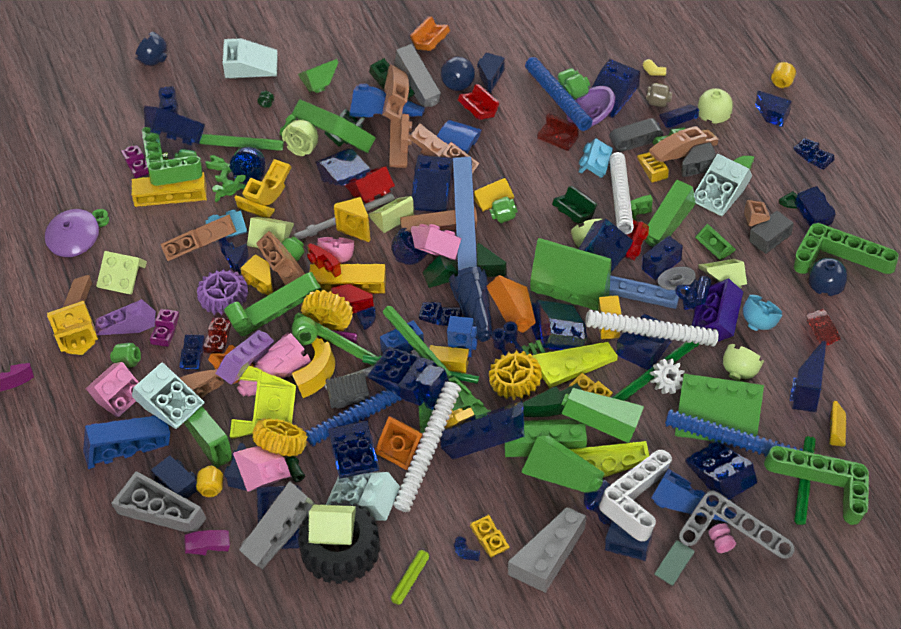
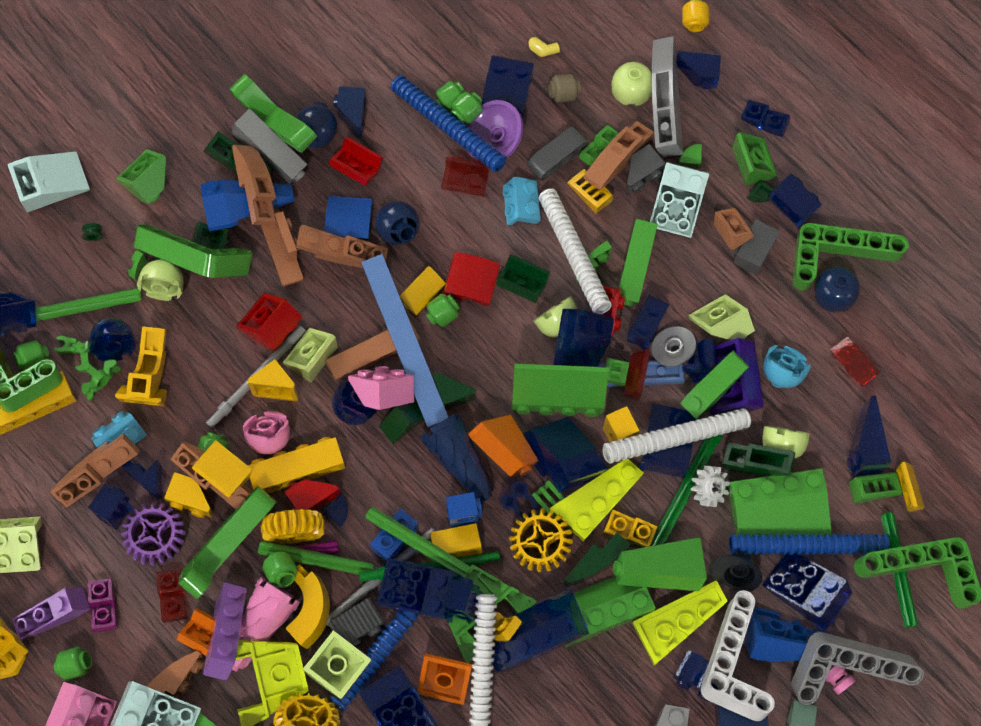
camera: 25 degrees left, 20 degrees up
(192, 352) = (150, 629): clear blue slope -> none
(198, 261) = (111, 506): none -> clear blue brick
(260, 226) = (173, 426): yellowish green slope -> none
(291, 253) = (222, 469): none -> yellow slope
(318, 406) = (336, 665): none -> yellowish green slope
(323, 258) = (258, 457): red slope -> none
(342, 167) = (232, 315): clear blue slope -> none
(429, 34) = (261, 70): orange bracket -> none
(432, 60) = (280, 122): none -> bright green beam
(432, 183) = (345, 298): clear blue slope -> none
(436, 314) = (422, 480): clear blue slope -> none
(492, 144) = (397, 223): none -> dark blue brick
(535, 196) = (471, 278): none -> red slope
(561, 466) = (643, 655): bright green slope -> none
(622, 282) = (617, 371): none -> bright green tile
(639, 288) = (636, 374): none -> clear red slope
(662, 435) = (736, 572): none -> black piece
(679, 115) = (595, 107): clear blue slope -> none
(697, 306) = (714, 385): none -> bright green slope
(712, 365) = (758, 460): none -> dark green slope
(714, 242) = (697, 278): bright green slope -> none
(736, 121) = (666, 98): none -> light grey slope
(793, 174) = (753, 158): none -> bright green slope
(806, 423) = (861, 491): none -> bright green slope

